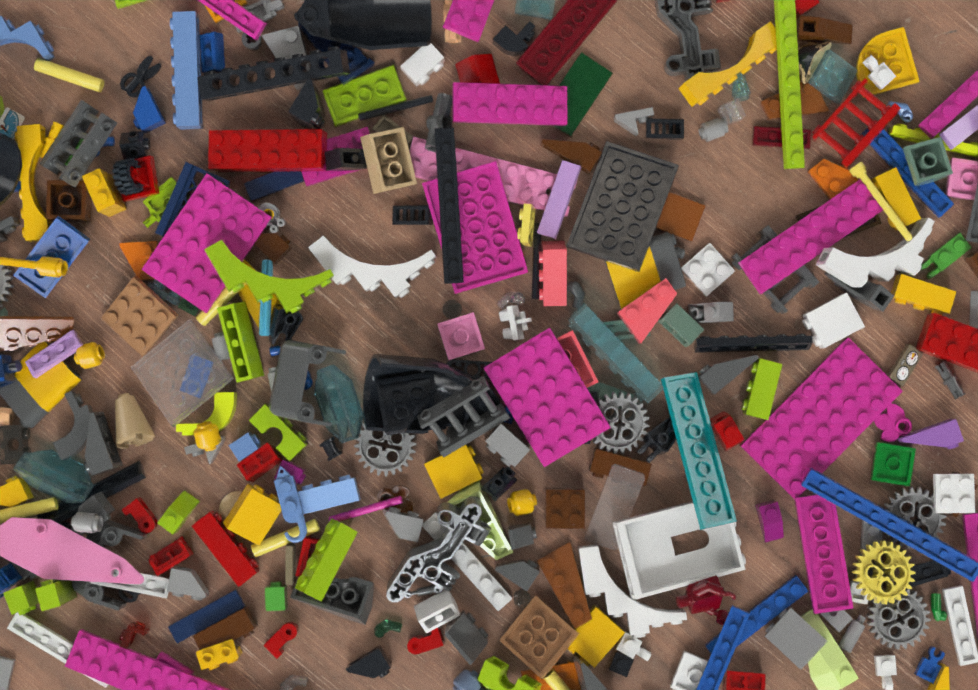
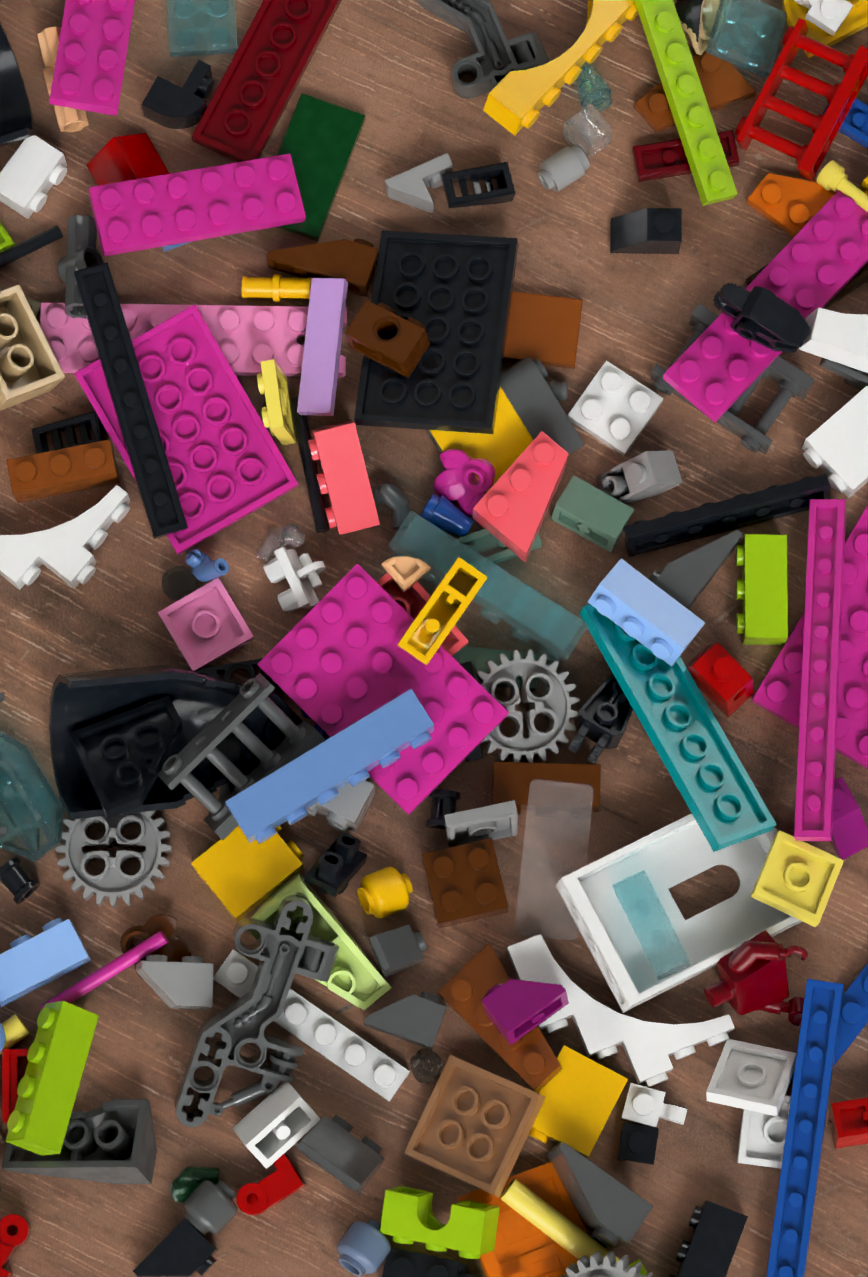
camera: 15 degrees left, 10 degrees down
(393, 644) = (210, 1206): none -> dark grey head
(404, 234) = (63, 471): none -> dark orange brick
(467, 304) = (203, 567): none -> medium blue arm
(508, 436) = (331, 766): none -> medium blue brick
(542, 159) = (276, 287): none -> yellow pin
(563, 471) = (442, 804): none -> black bush
(574, 336) = (405, 570): none -> light nougat tile
(578, 584) = (522, 1006): none -> magenta slope
(581, 481) = (482, 823): none -> light grey tile
(588, 365) = (442, 611): none -> yellow slope
(600, 215) = (398, 353): none -> reddish brown brick
(602, 307) = (446, 515): none -> blue cone
(616, 290) = (459, 480): none -> dark pink plate
(657, 557) = (651, 925): none -> clear light blue tile
(689, 647) = (751, 1077): none -> white plate
(696, 389) = (646, 612): none -> light blue brick
(740, 551) = (797, 878): none -> light yellow plate
(749, 176) = (647, 231): none -> black slope
(781, 442) = (820, 670): none -> dark pink plate
(801, 245) = (762, 317): none -> black hinge

